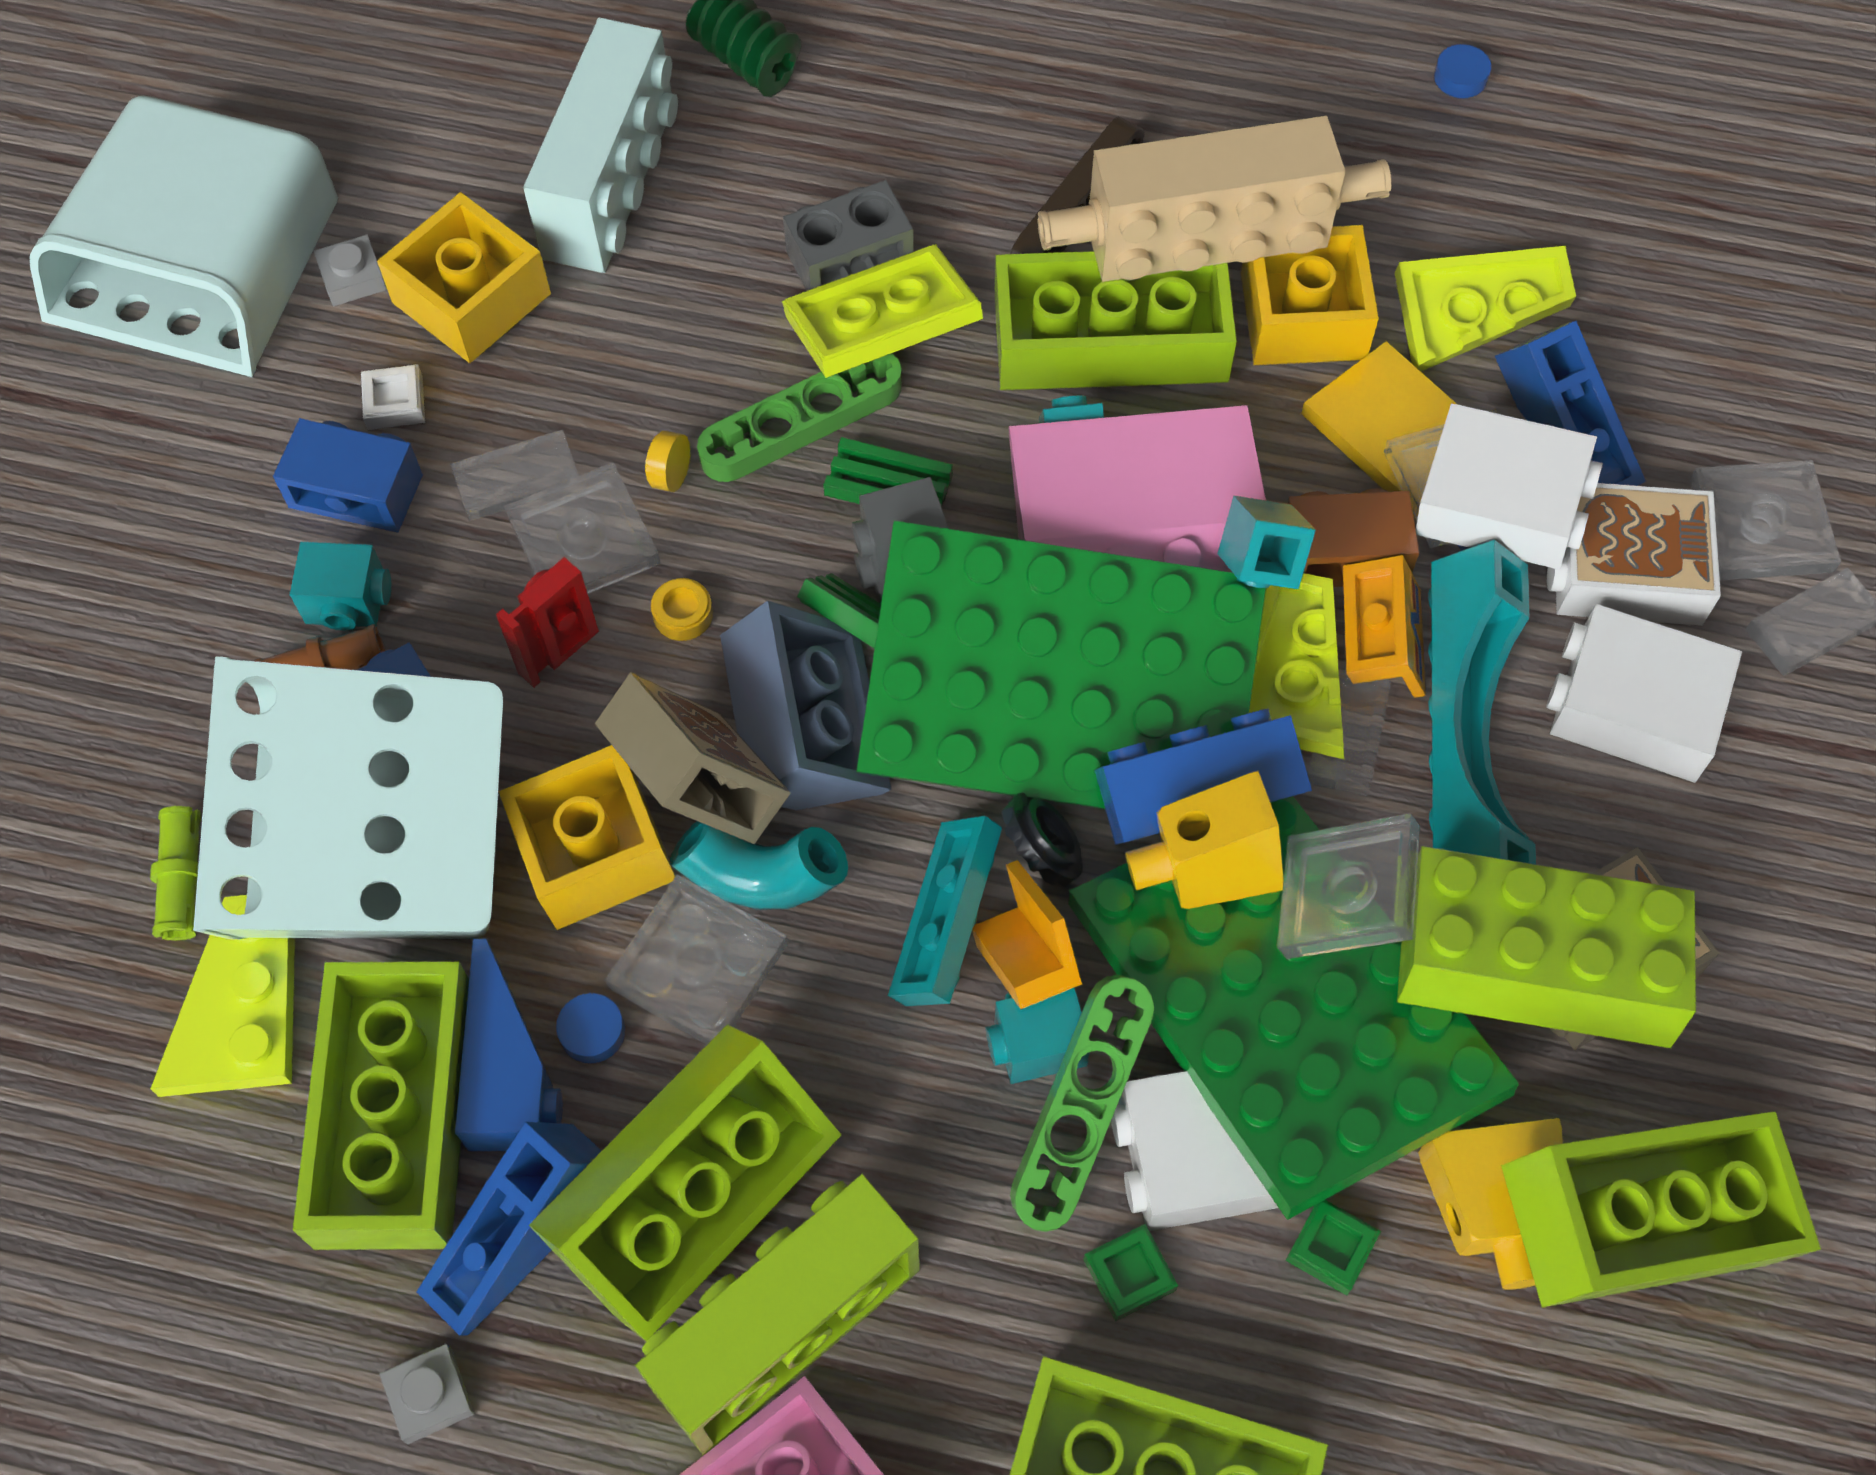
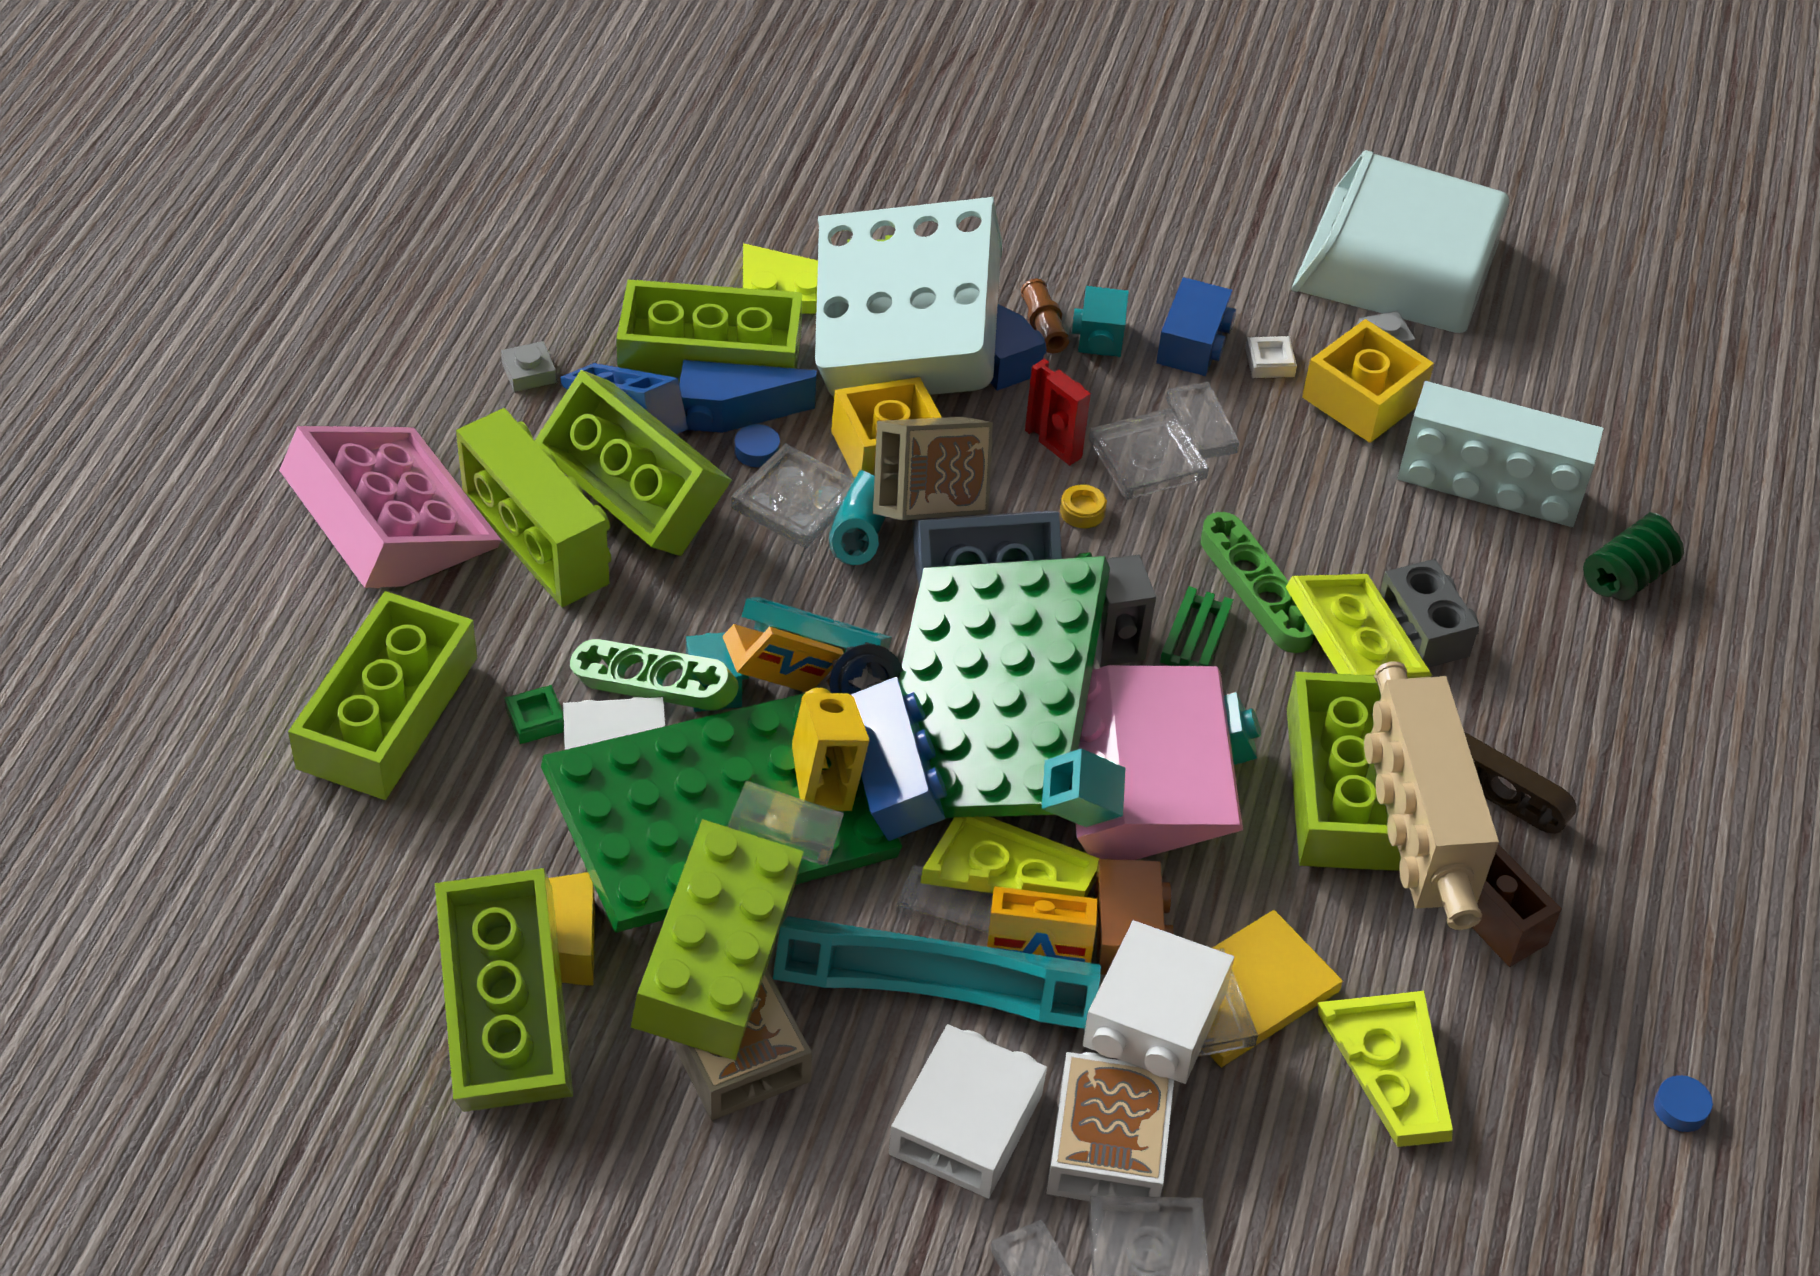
camera: 90 degrees right, 15 degrees down
(667, 461) = (1208, 495): yellow tile -> none
(1312, 302) = (1373, 918): yellow brick -> none
(1333, 1246) = (531, 832): green tile -> none
(1561, 387) = (1263, 1108): blue slope -> none

